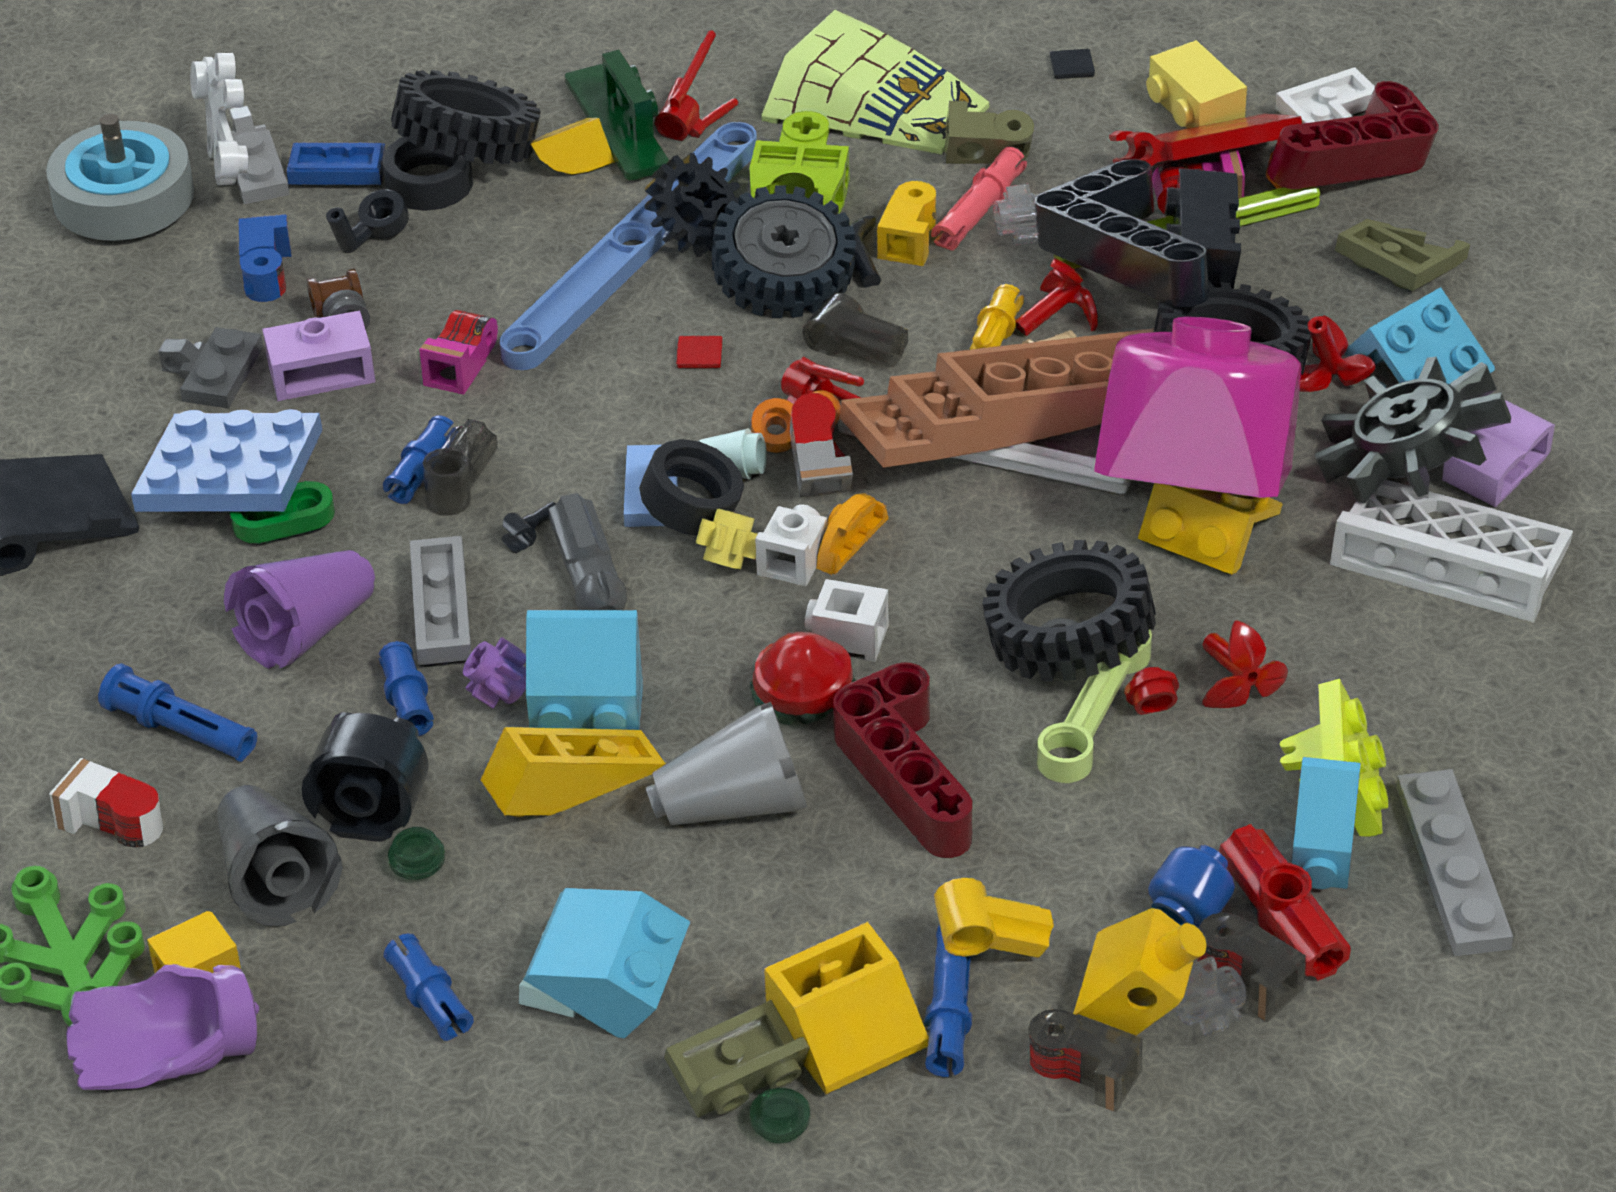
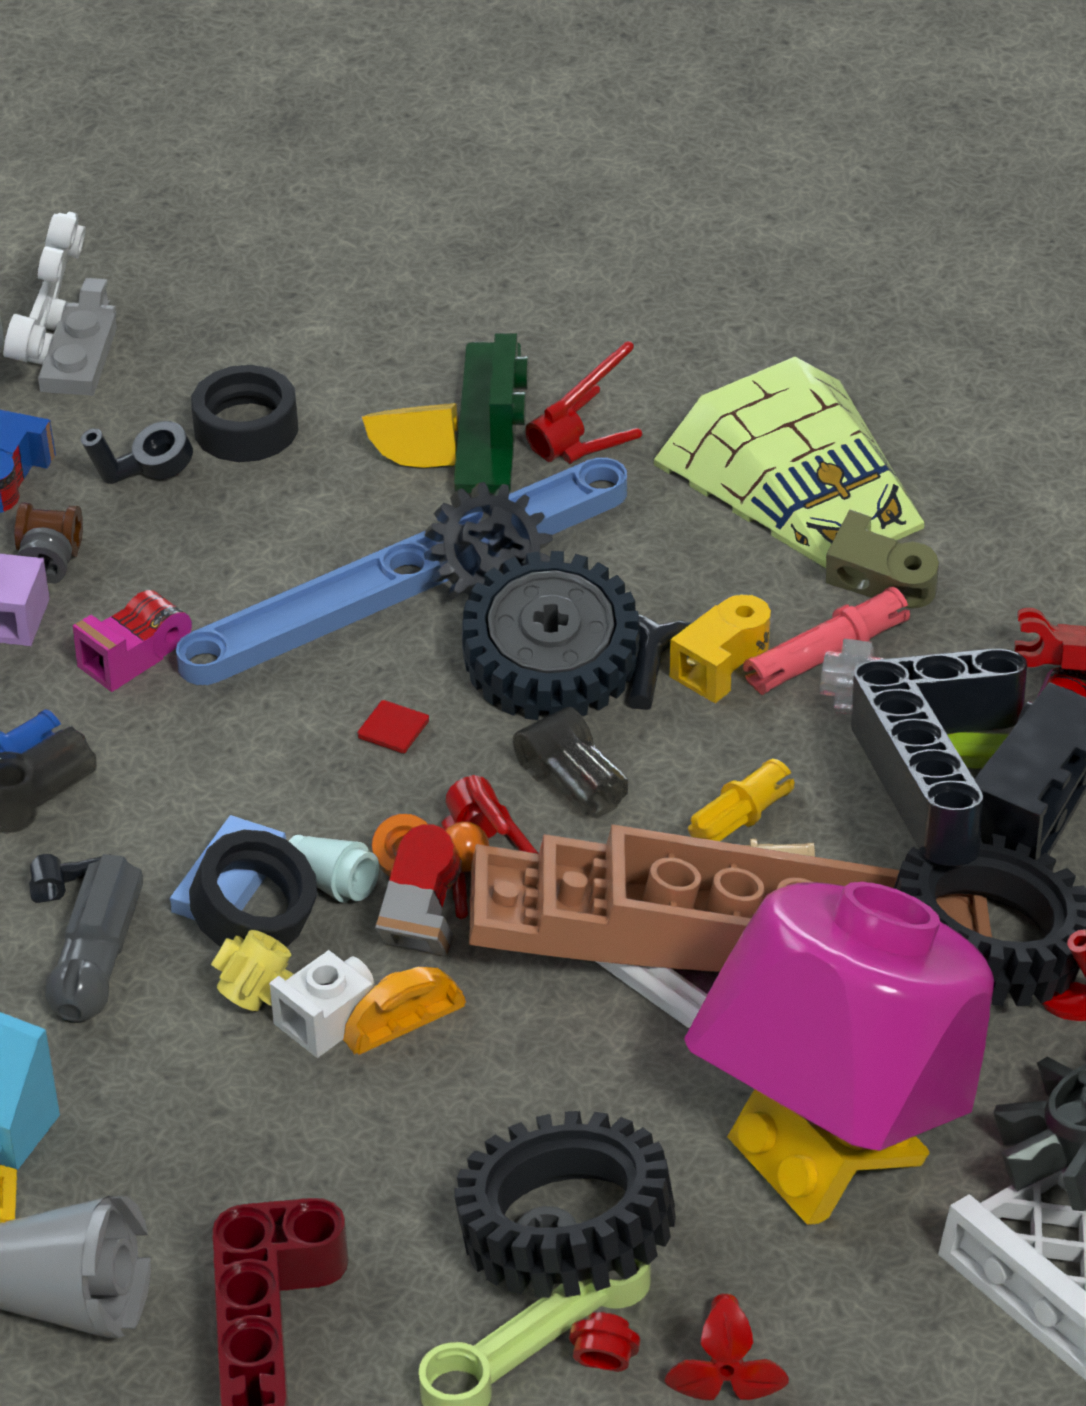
camera: 25 degrees right, 0 degrees up
(336, 163) = (152, 373): blue plate -> none
(465, 117) = (295, 390): black tyre -> none
(801, 676) = (215, 1168): red hair -> none
(802, 160) = (646, 538): lime piece -> none
(850, 616) = (321, 1120): white brick -> none
(1063, 288) = (844, 793): red plant -> none
(1072, 63) = (1054, 503): black piece -> none

